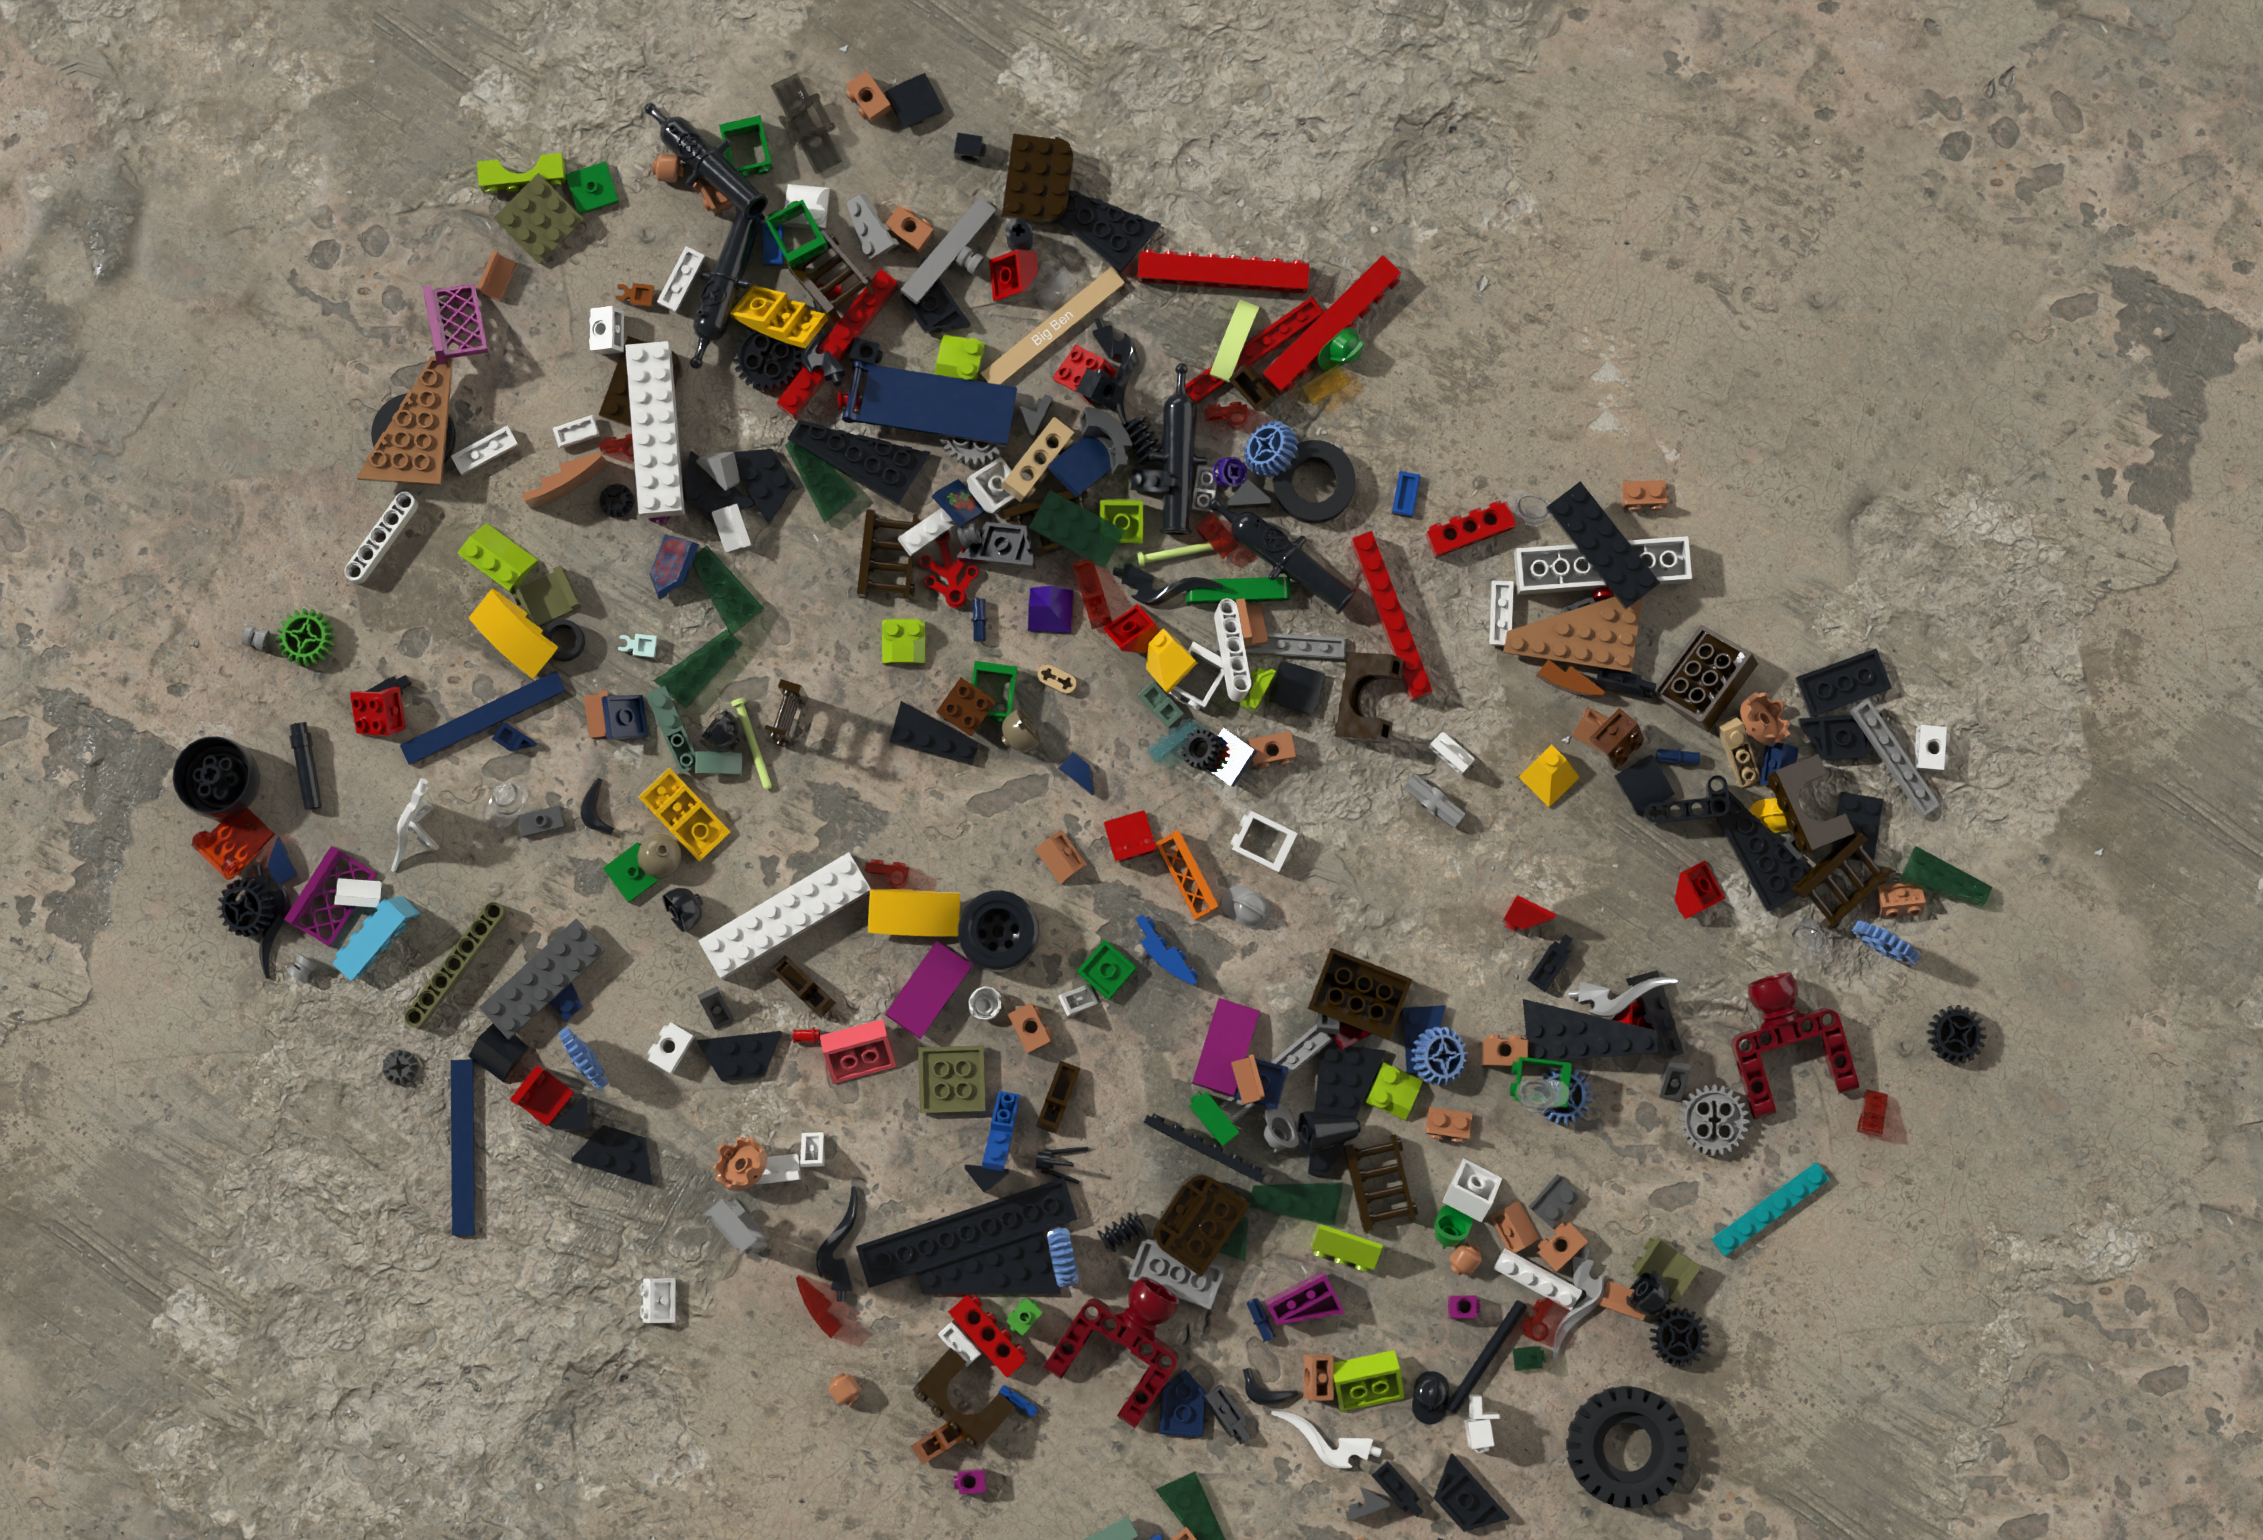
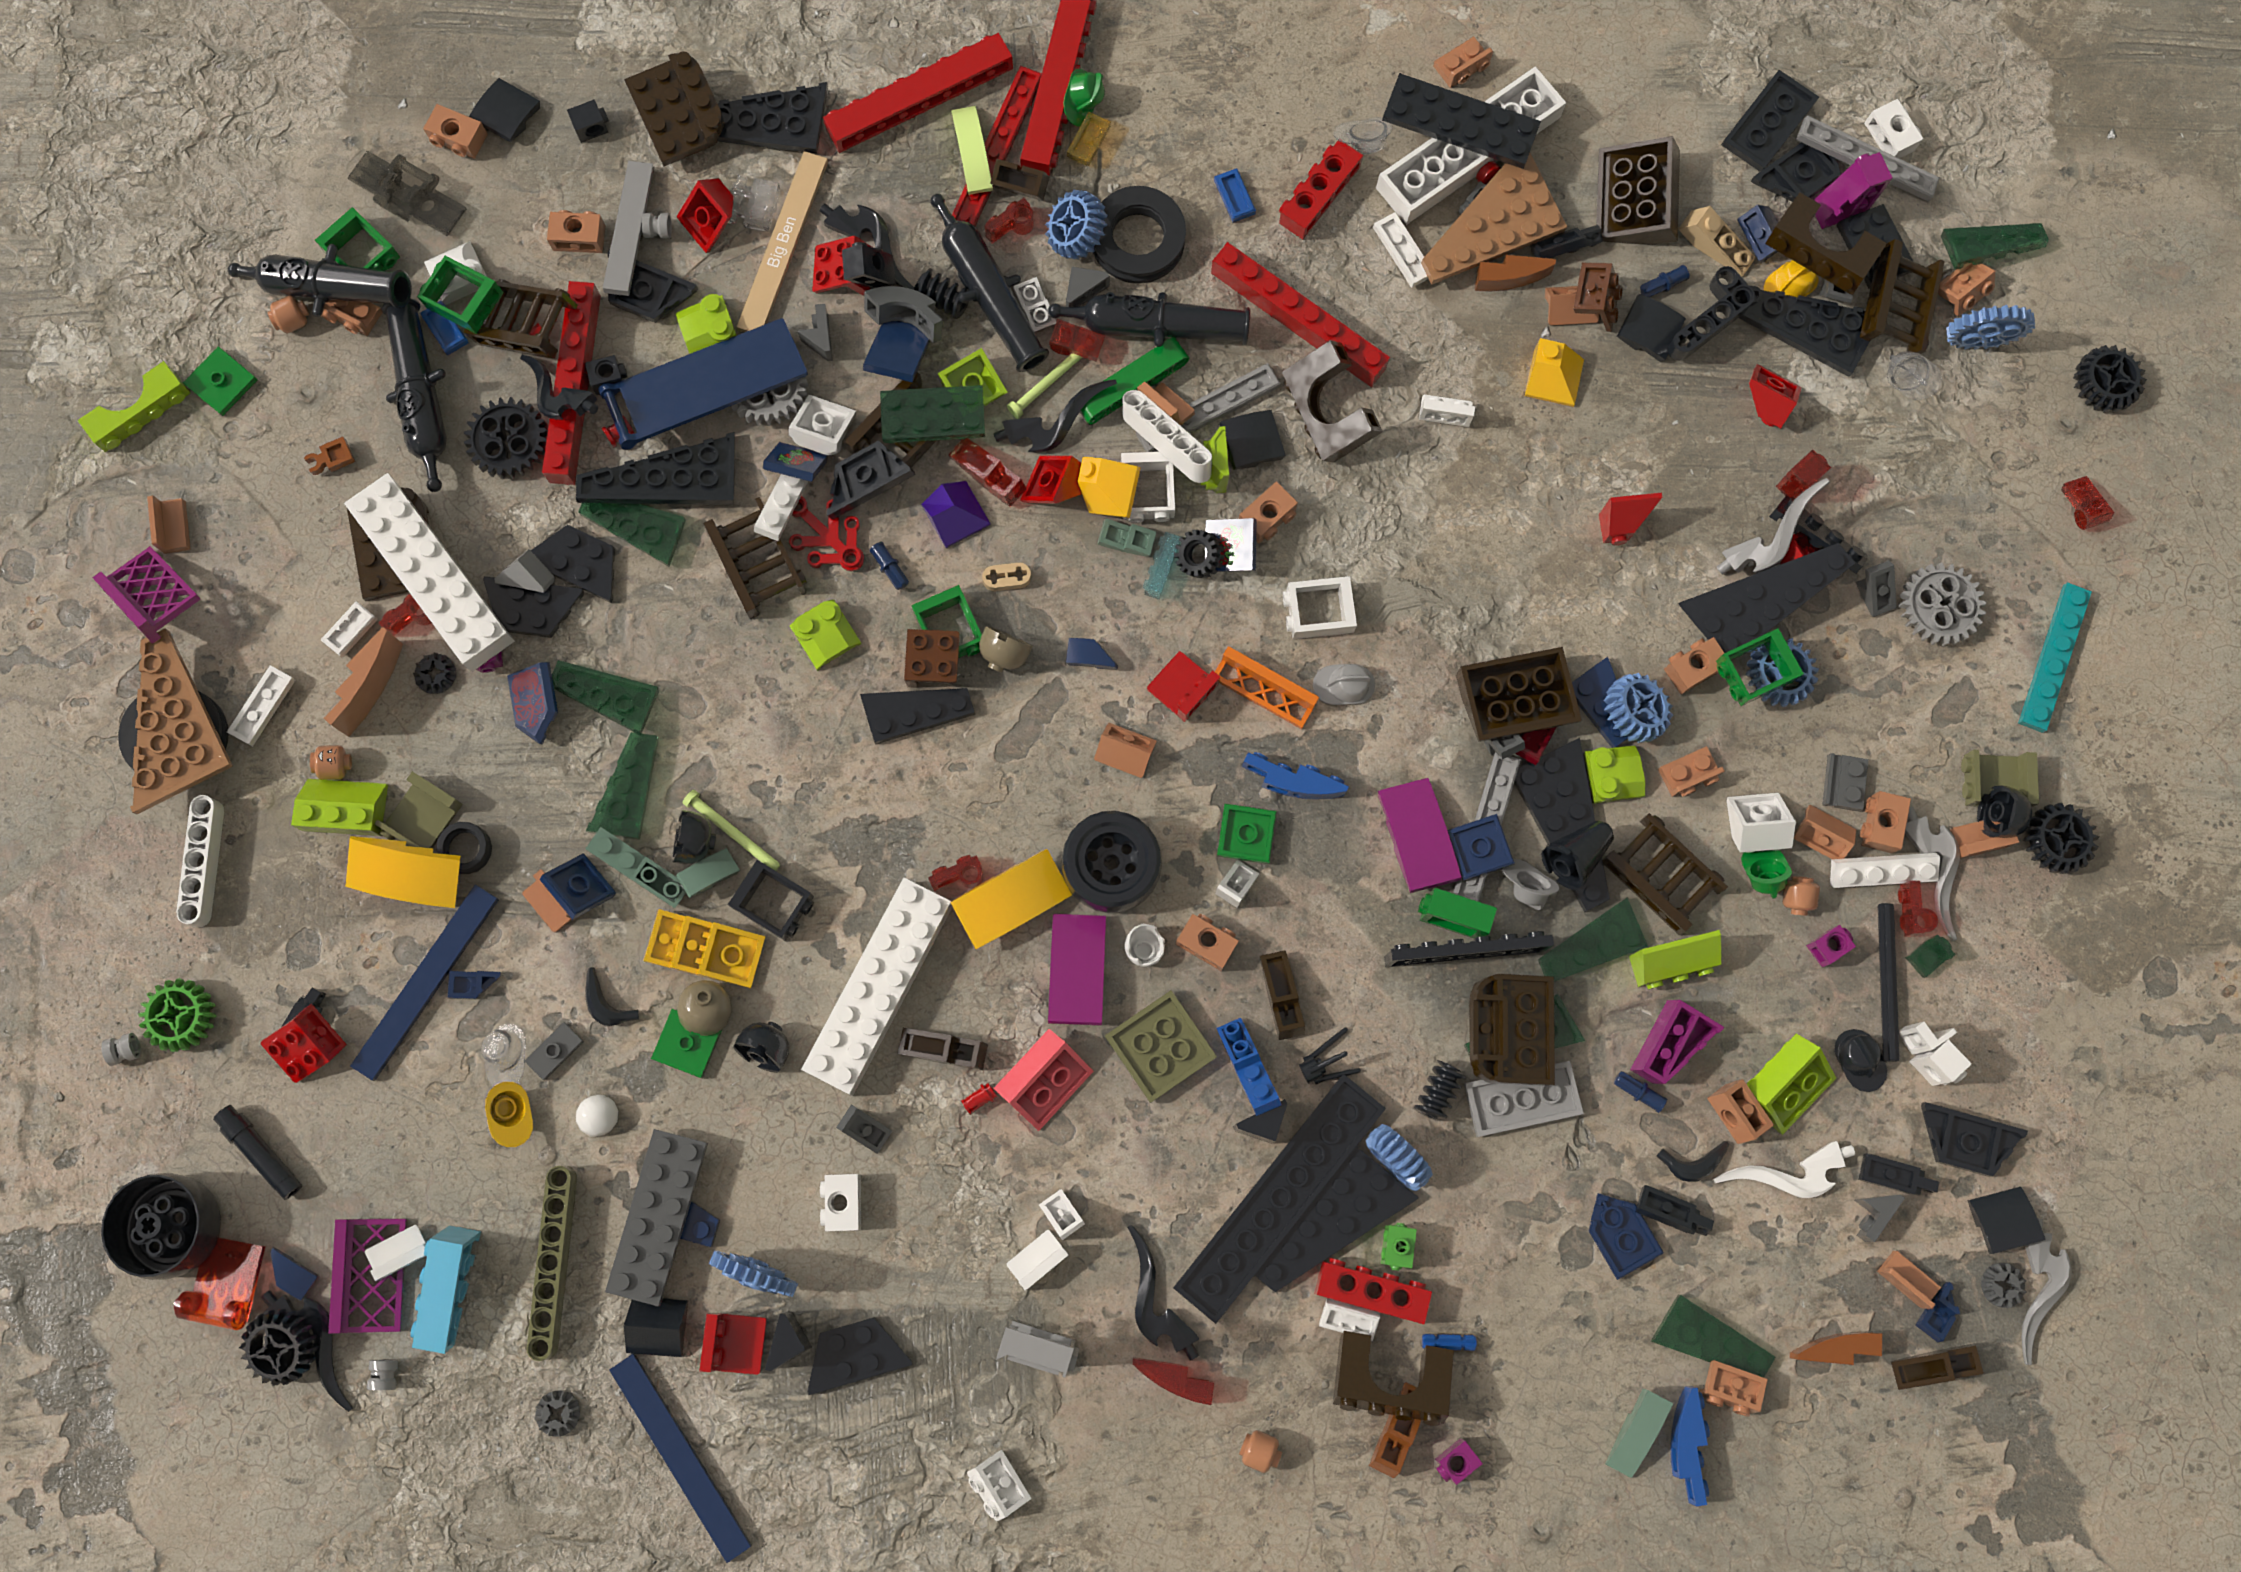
camera: 35 degrees left, 5 degrees down
(409, 813) = (397, 1141): white piece -> none
(423, 837) = (408, 1127): white bracket -> none
(486, 847) = (509, 1114): none -> yellow piece
(508, 522) = (330, 762): none -> nougat head
(539, 218) = (179, 439): olive plate -> none
(543, 883) = (596, 1115): none -> white hair
(612, 321) = (319, 508): white brick -> none
(642, 645) = (551, 802): light aqua plate -> none
(681, 279) = (368, 415): white plate -> none
(731, 528) = (573, 627): white panel -> none
(733, 1158) = (983, 1278): nougat plate -> none
(740, 1055) = (921, 1163): black wing -> none
(741, 790) = (749, 887): none -> black window
(778, 317) = (492, 390): yellow slope -> none
(793, 697) = (746, 755): dark brown fence -> none
(869, 229) = (536, 253): light grey wing -> none
(969, 535) = (826, 485): dark grey wheel -> none
(1014, 229) = (690, 167): black piece -> none
(1055, 432) = (840, 406): tan brick -> none
(1148, 1306) = (1523, 1182): dark red piece -> none
(1153, 480) = (979, 323): black hinge -> none
(1228, 466) = (1051, 271): dark purple wheel -> none
(1248, 1080) = (1468, 850): nougat panel -> none
(1434, 801) = (1461, 465): light grey piece -> none
(1542, 1094) = (1775, 674): clear piece -> none
(1550, 964) = (1681, 552): black hinge -> none
(1588, 1458) = (2061, 1019): black tyre -> none
(1675, 965) = (1804, 474): none -> clear red brick
(1763, 719) = (1725, 197): nougat plate -> none
(1783, 1023) = (1945, 468): dark red piece -> none
(1857, 777) = (1853, 190): none -> magenta wedge

